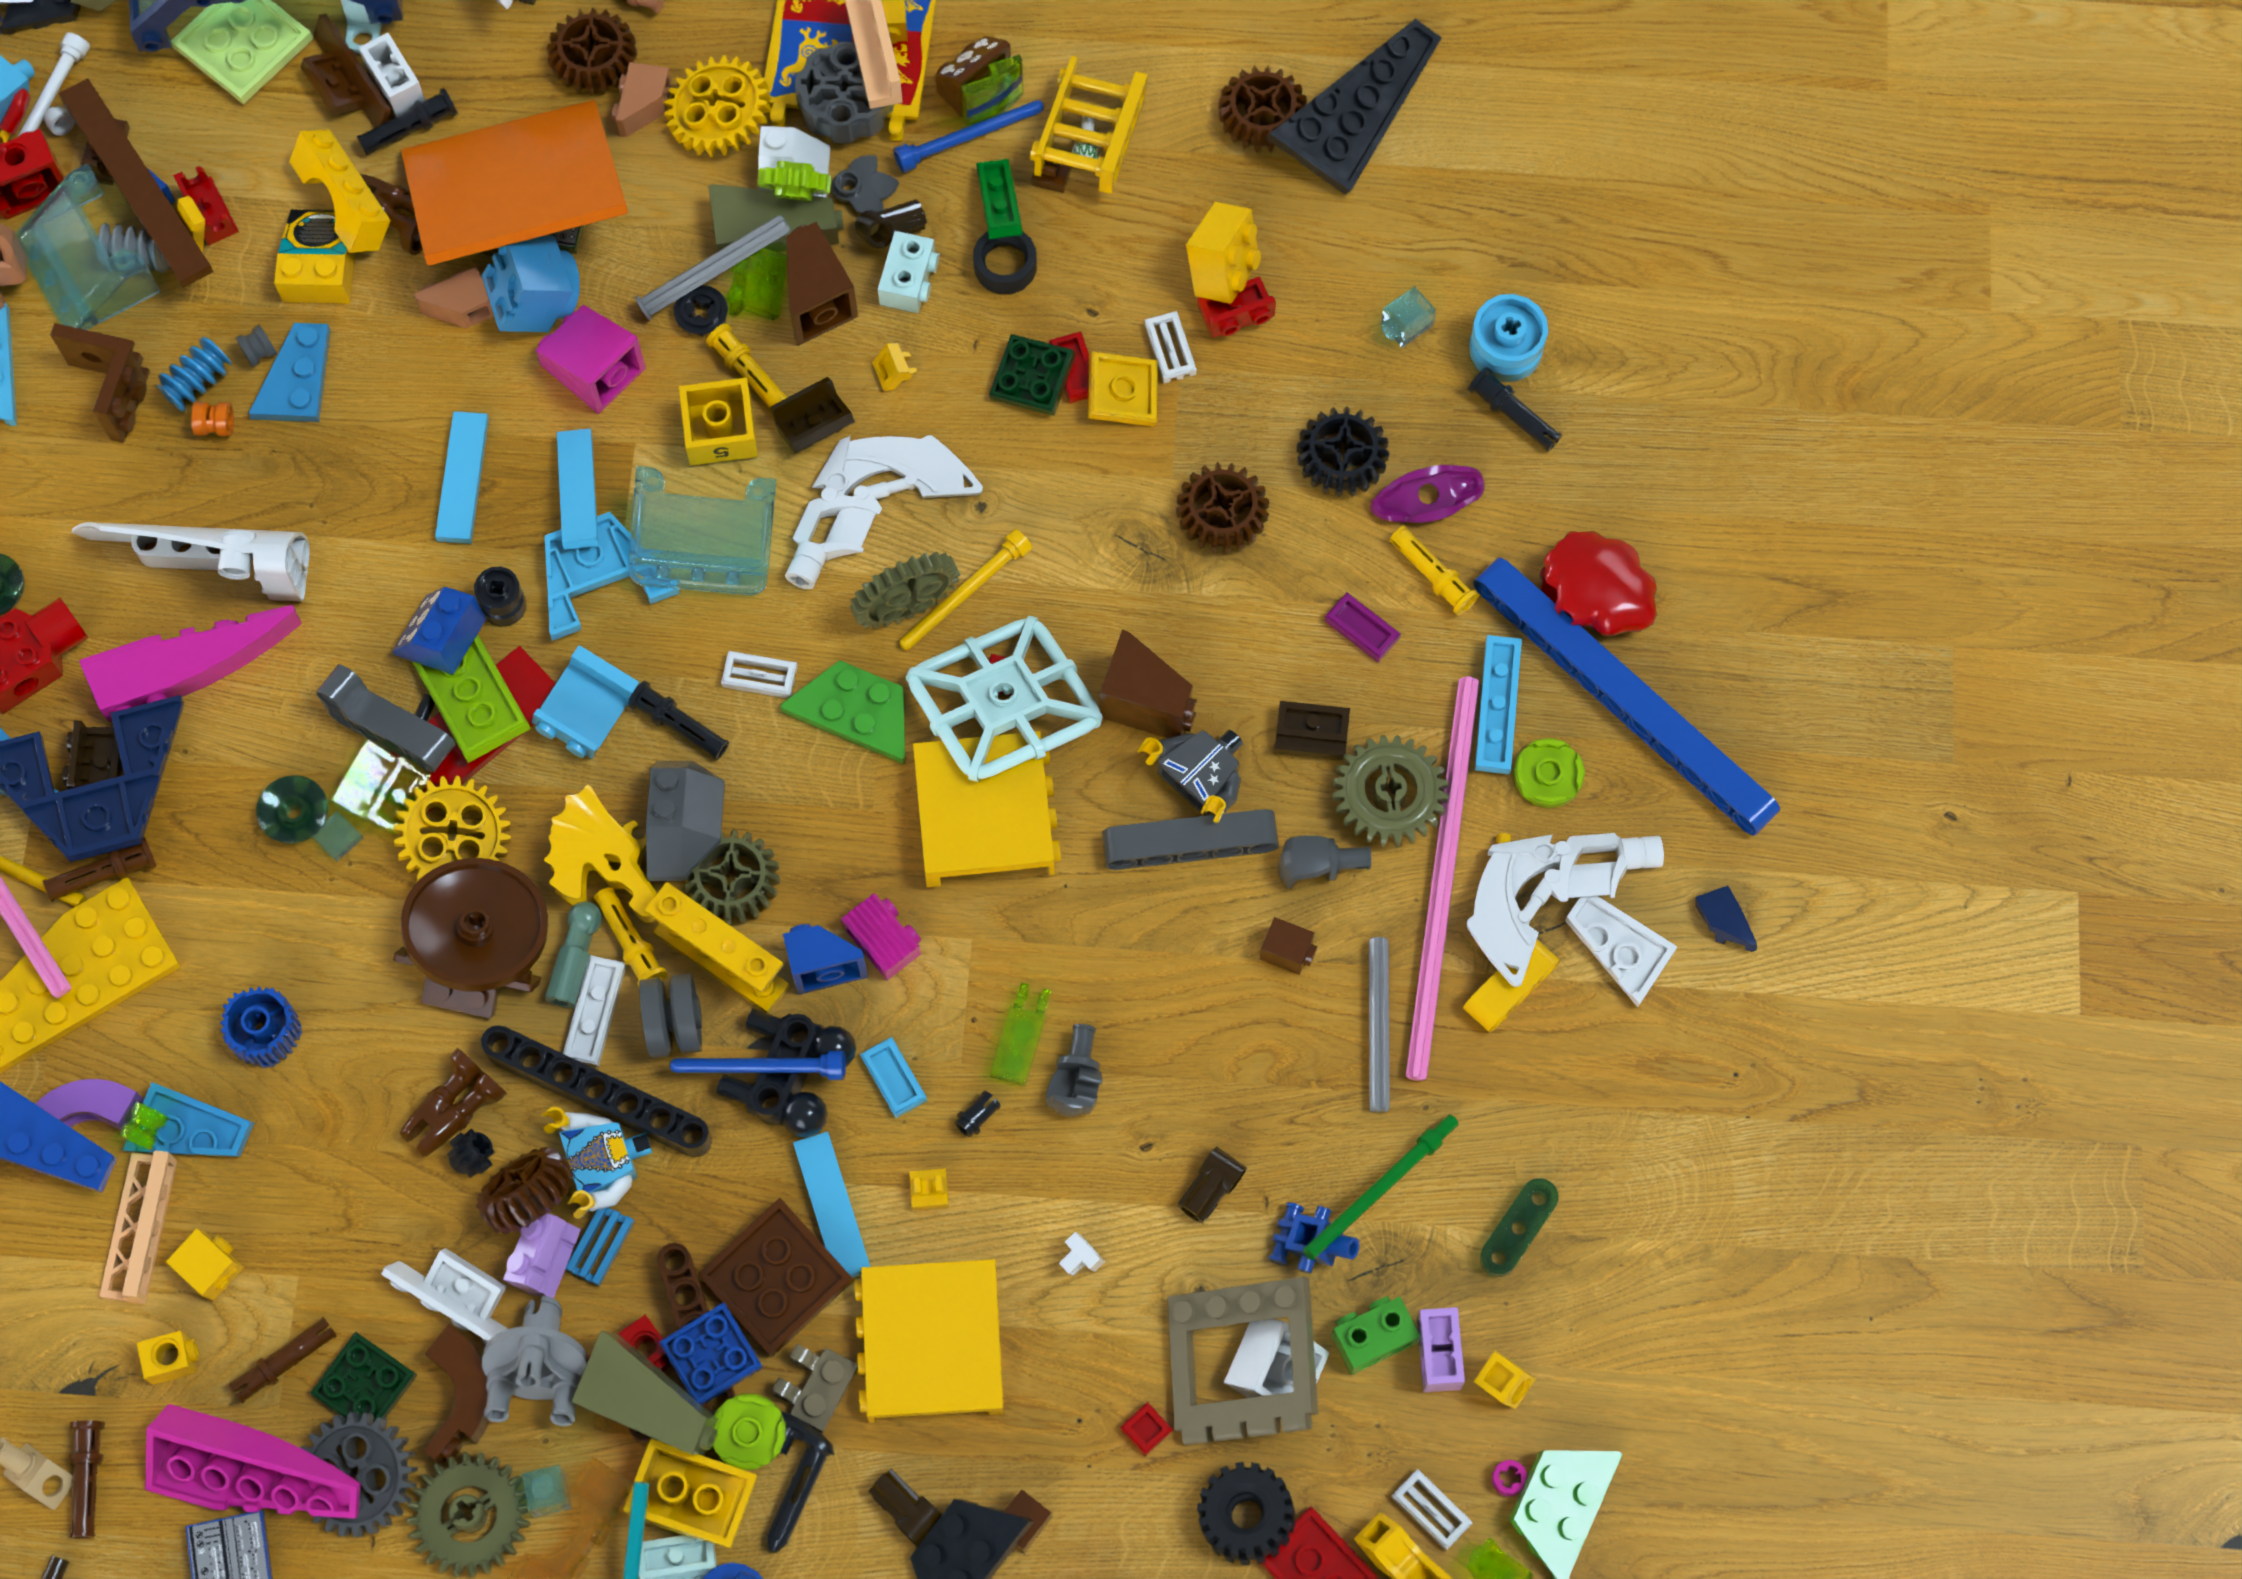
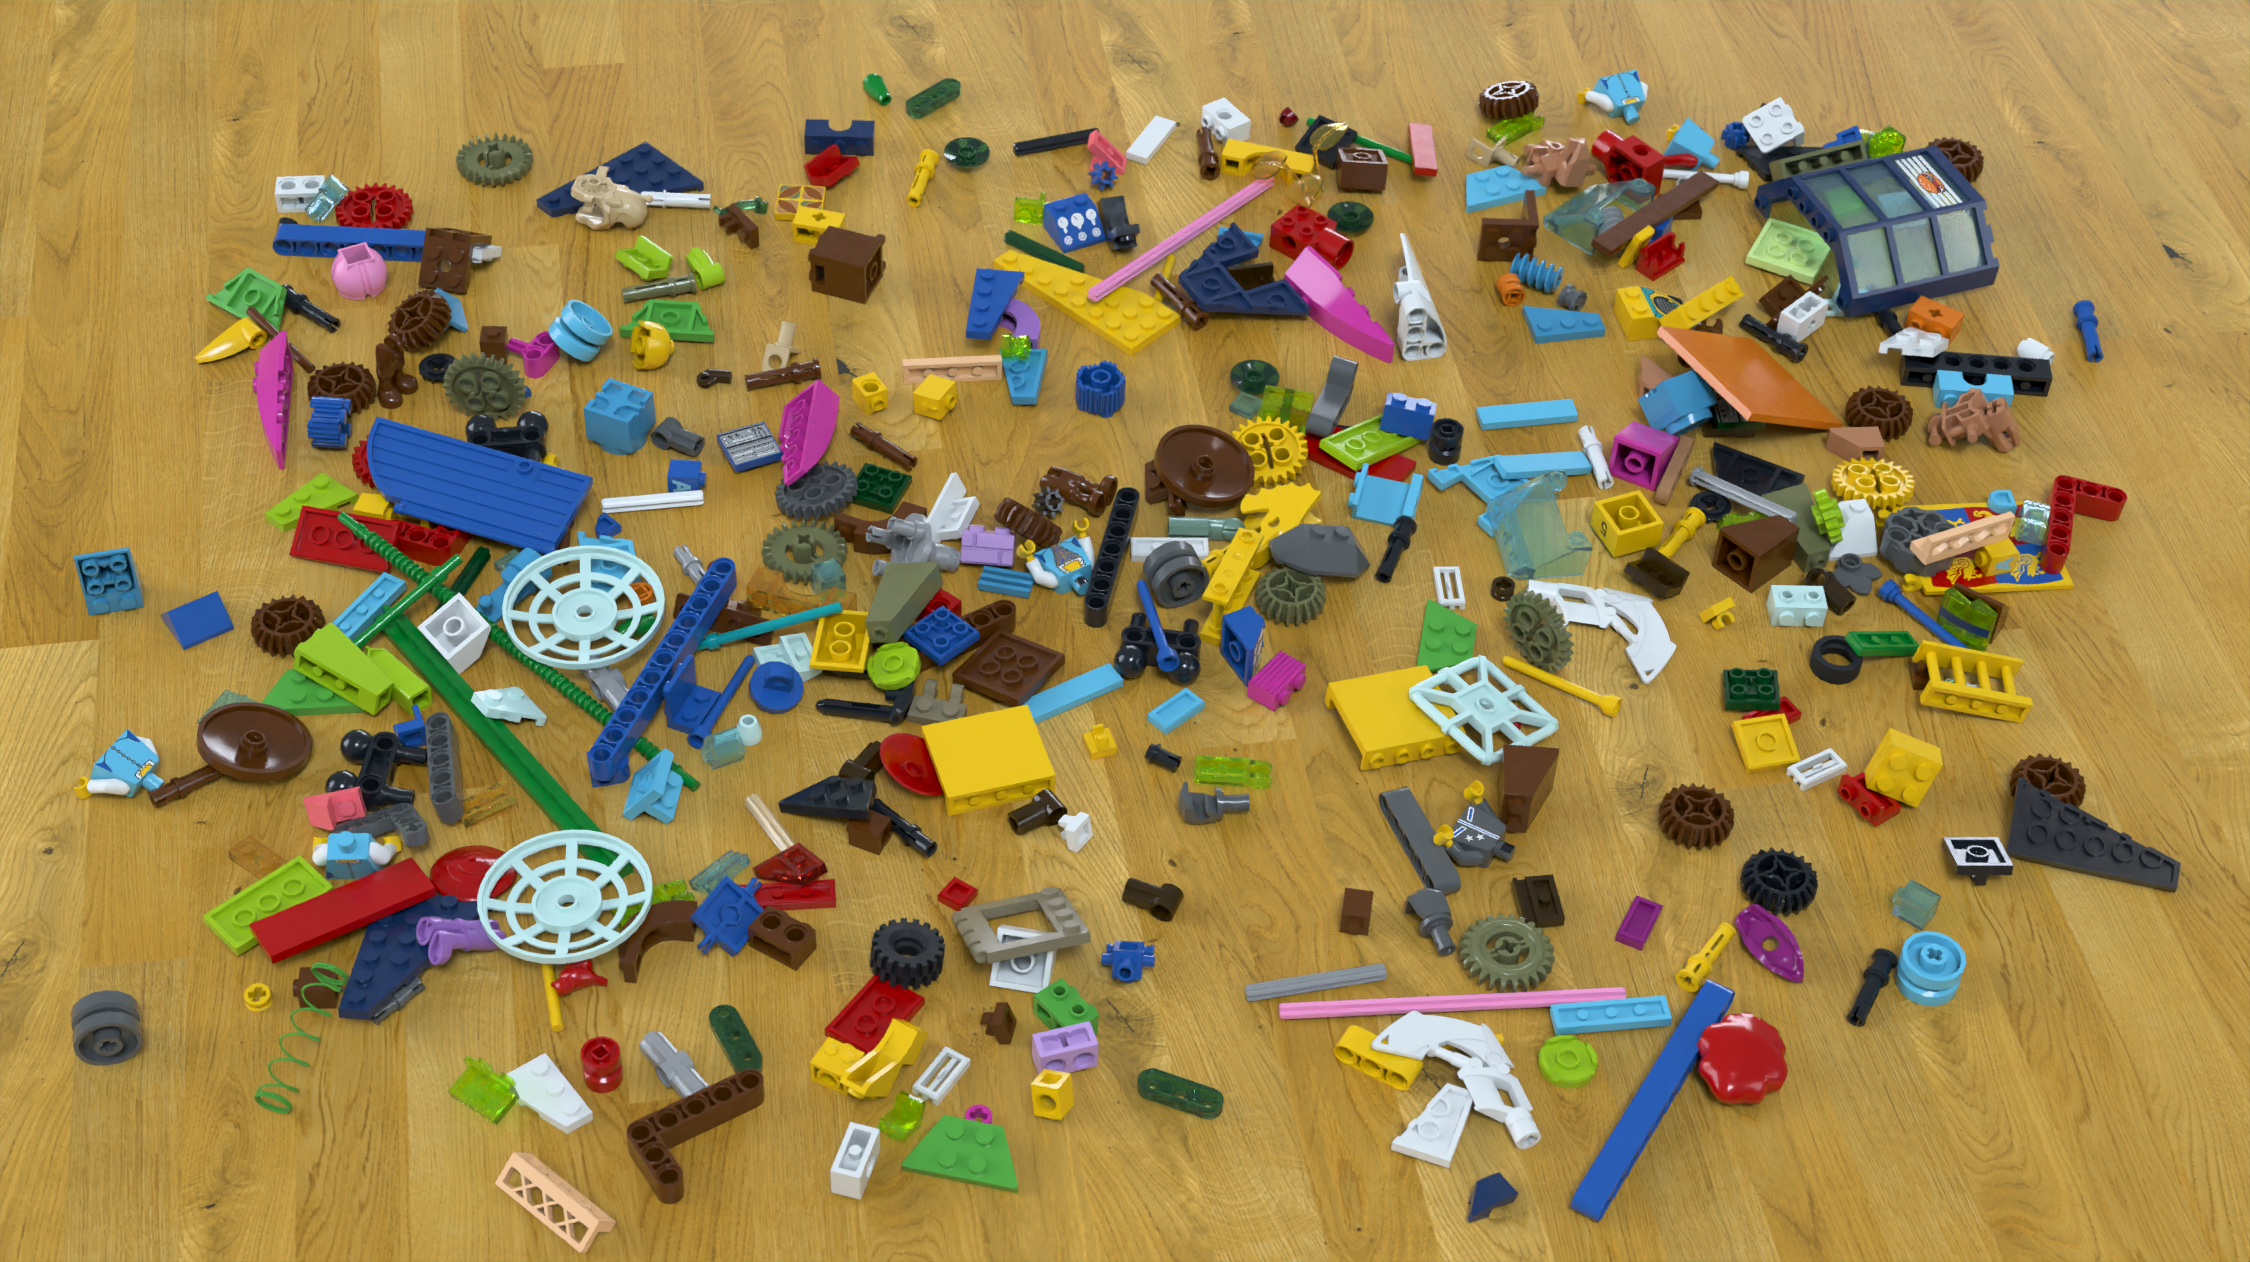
camera: 75 degrees right, 25 degrees down
(566, 417) = (1593, 450): none -> white pin
(652, 347) = (1675, 469): none -> medium nougat beam
(657, 244) = (1752, 472): none -> black wing
(775, 599) = (1502, 582): none -> dark brown bush
(925, 1445) = (910, 763): none -> red hat
(1027, 1475) = (910, 833): none -> black pin
(1035, 1289) = (1043, 809): none -> dark brown piece
(1353, 224) = (1977, 857): none -> black hinge
(1374, 1418) = (1000, 1023): none -> reddish brown tile
(1426, 1144) = (1229, 1023): green bar -> none

